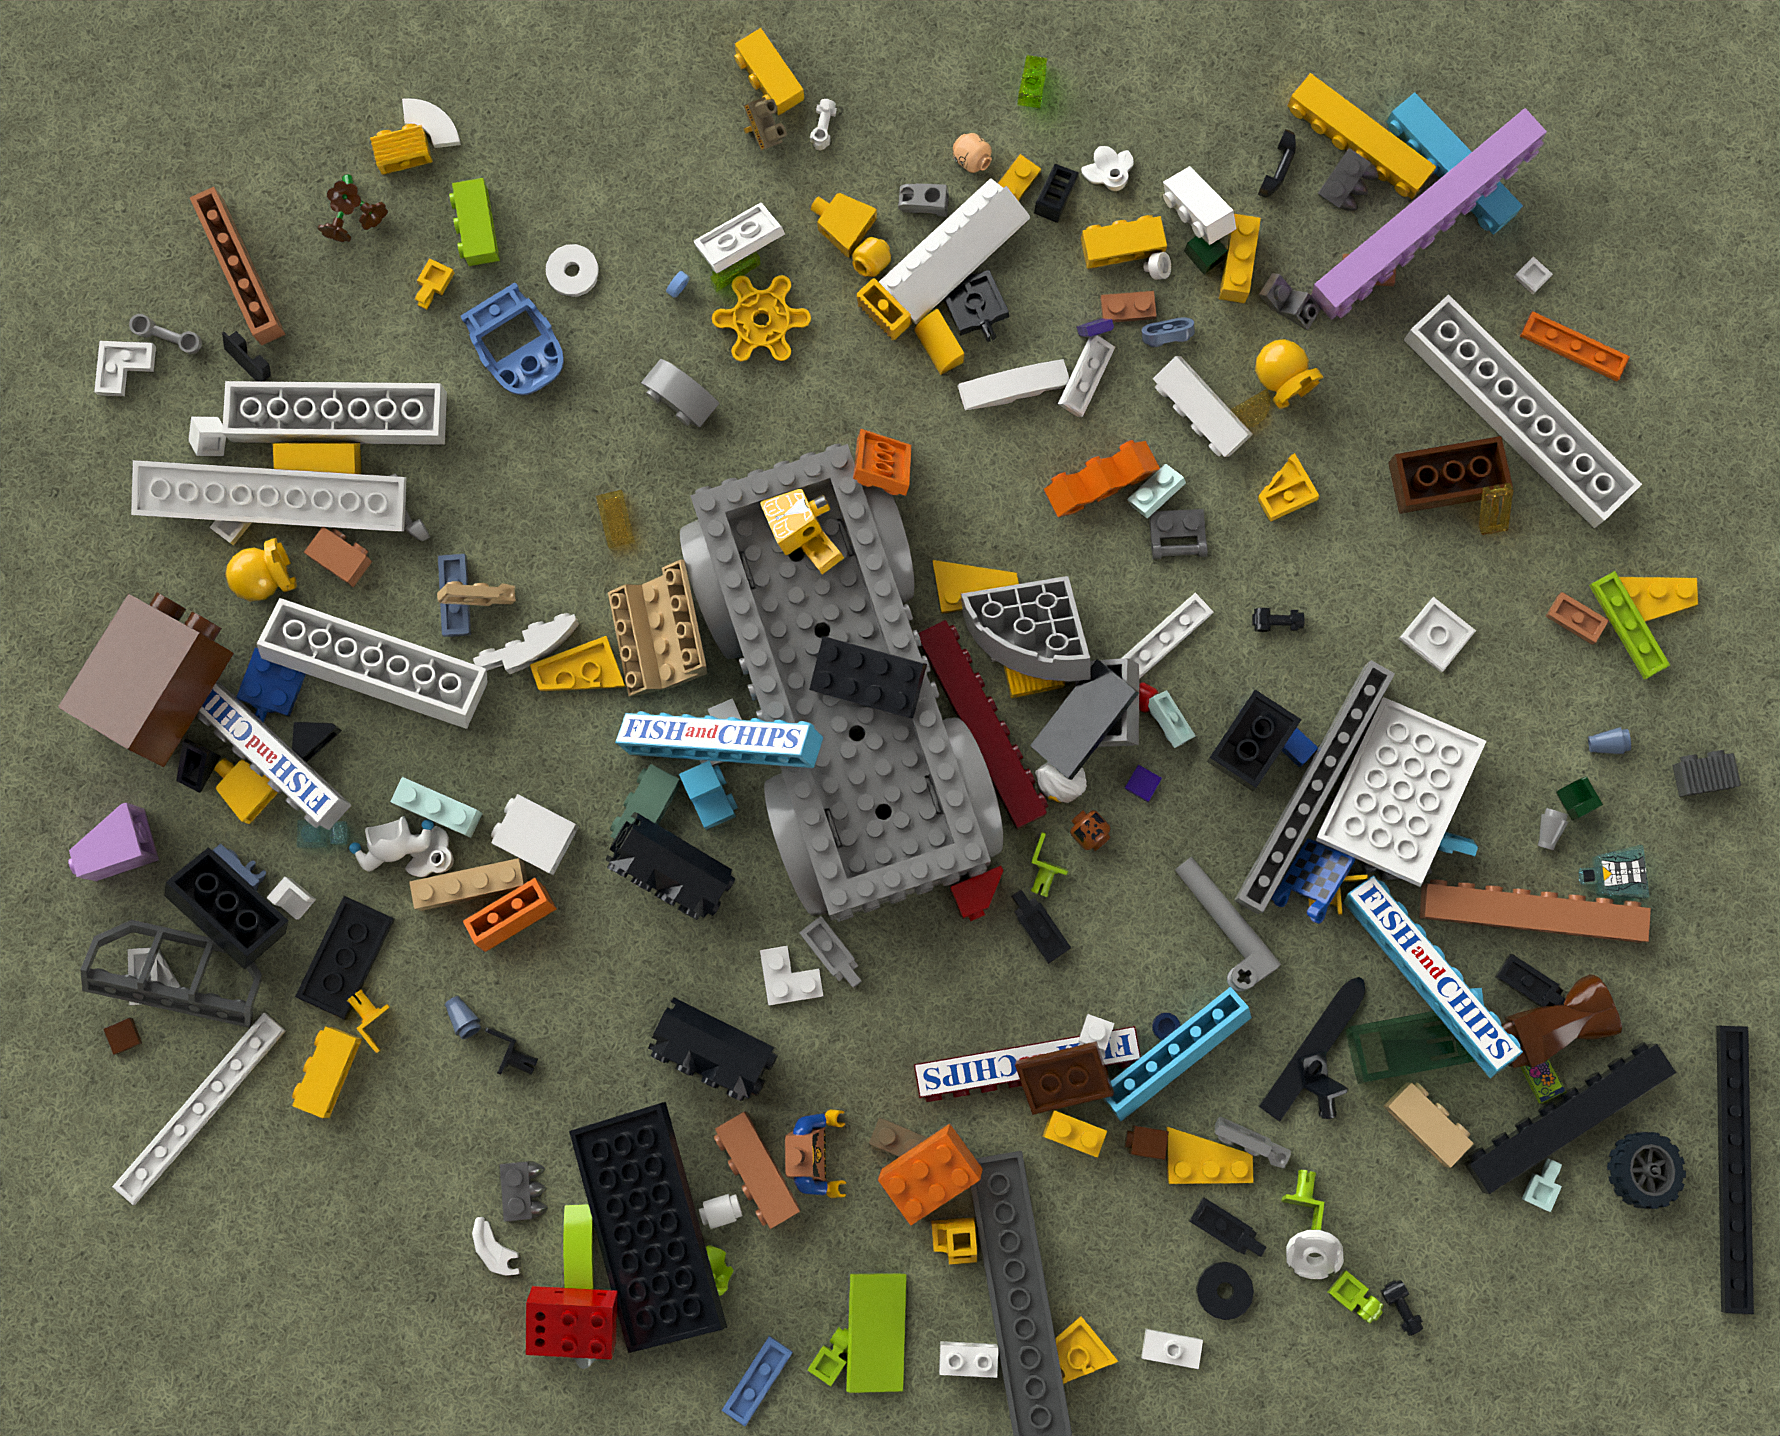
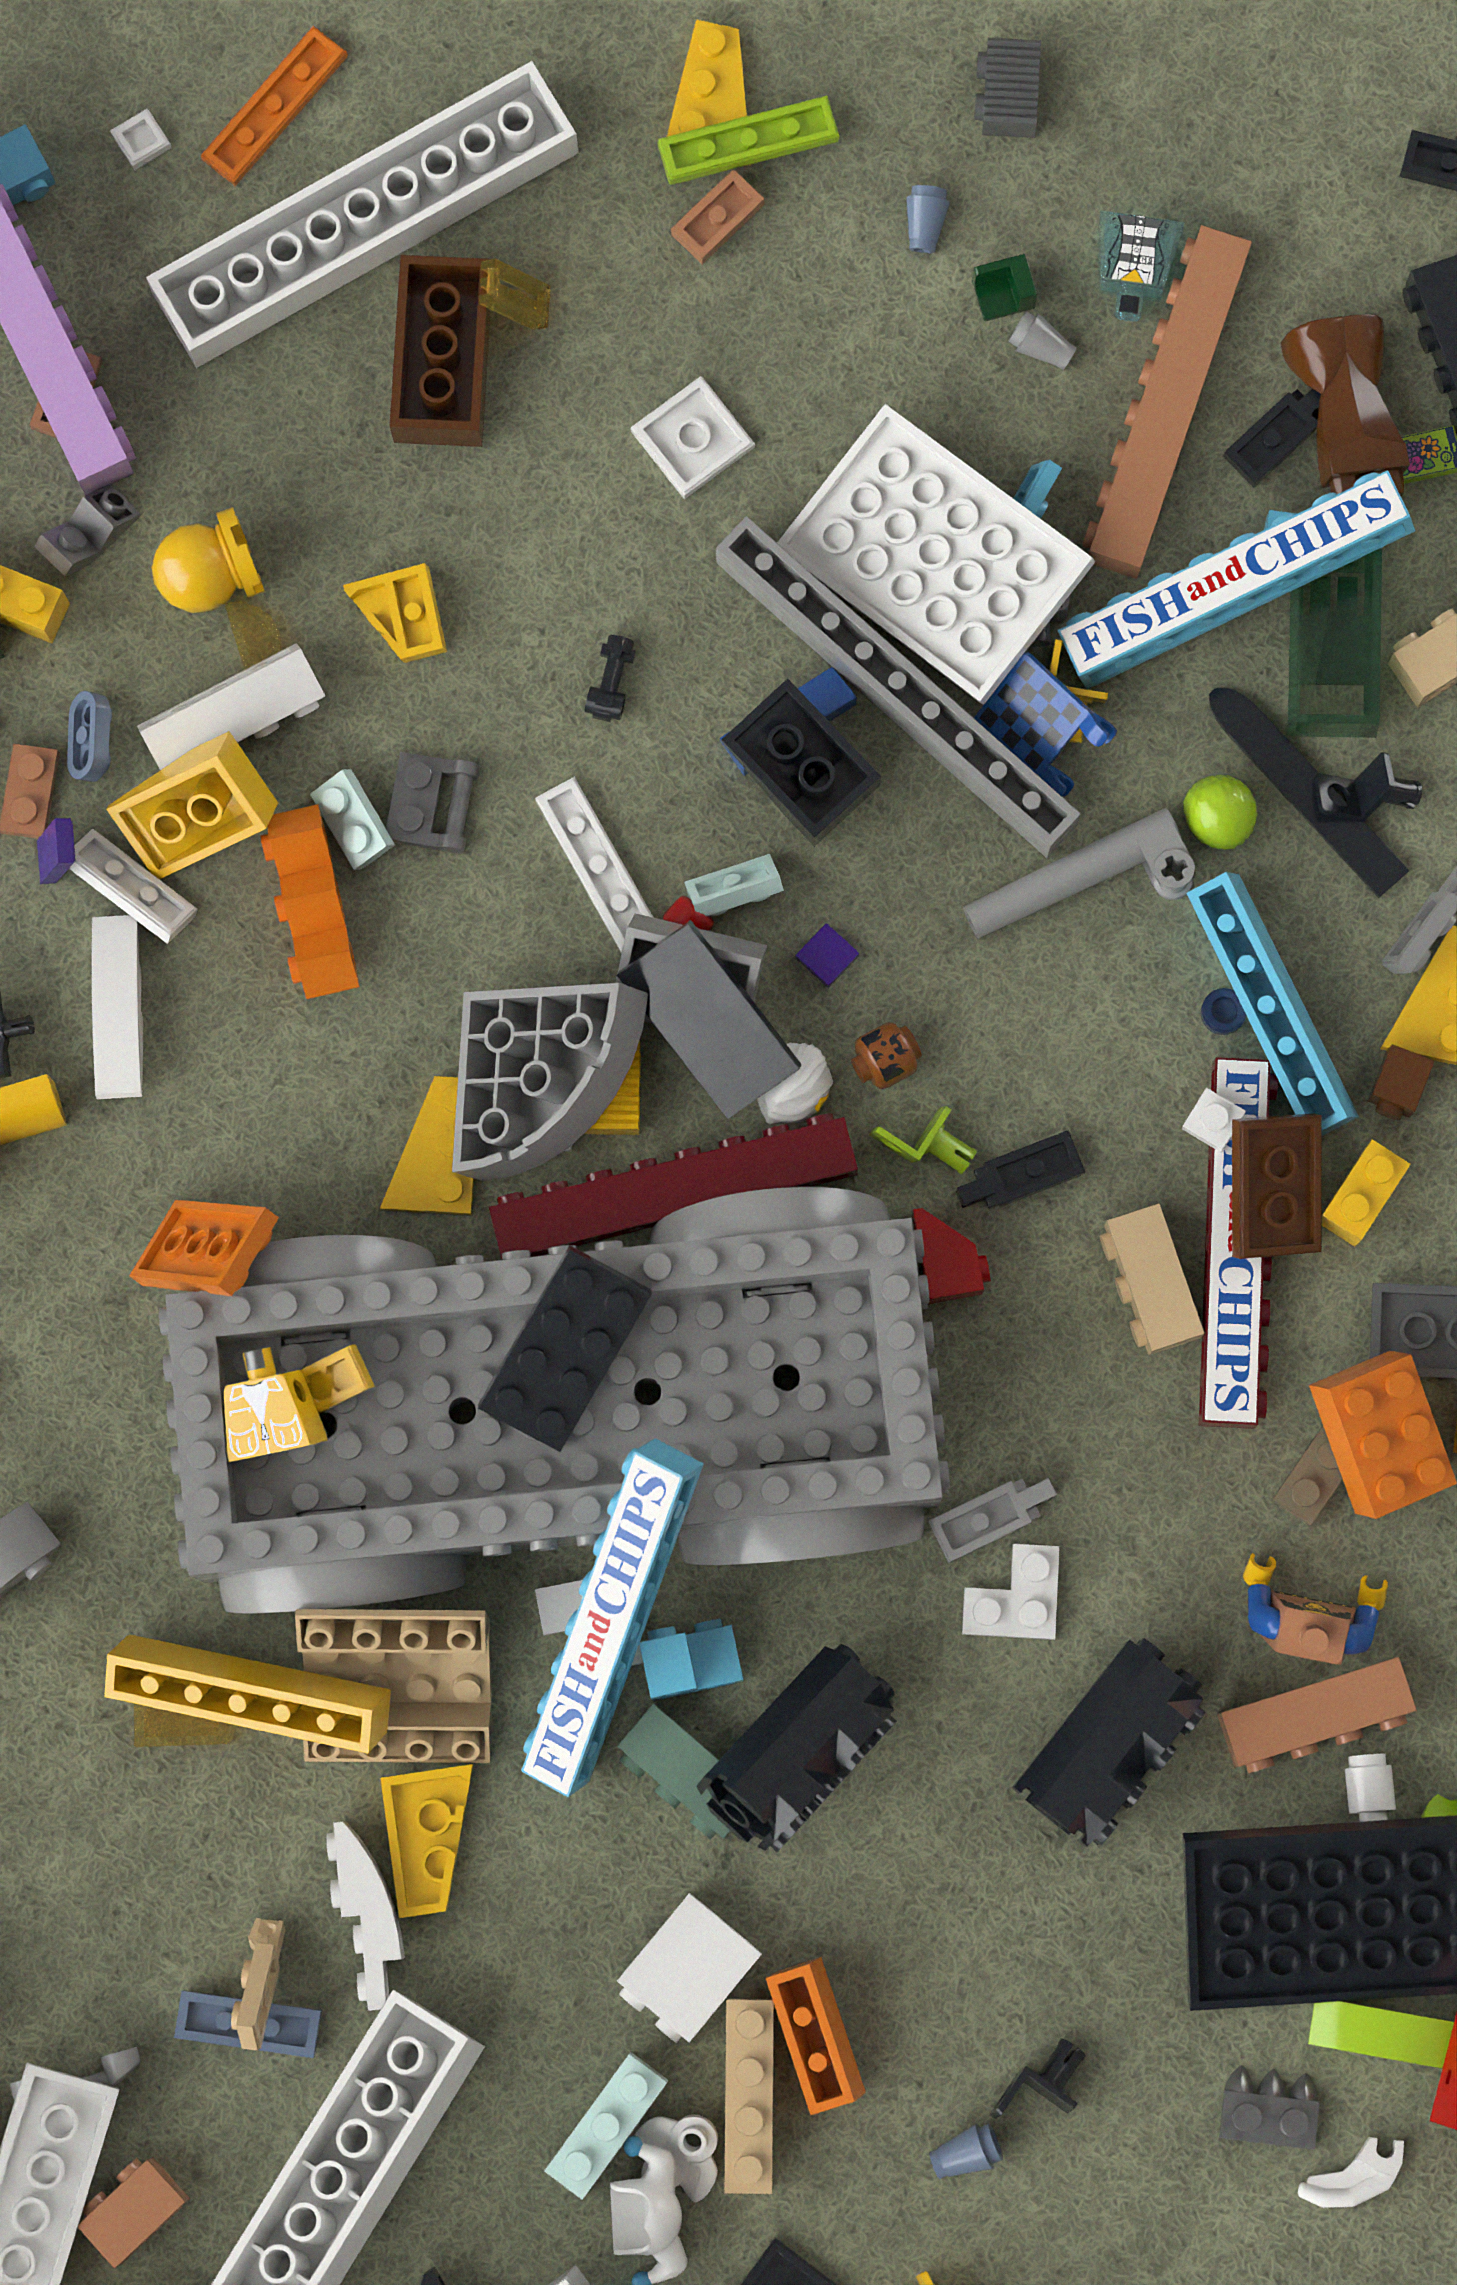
camera: 75 degrees left, 0 degrees up
(635, 549) = (247, 1693): none -> yellow brick
(992, 1016) = (1151, 1280): none -> tan brick
(1140, 399) = (194, 807): none -> yellow slope
(1287, 998) = (1220, 811): none -> lime hair

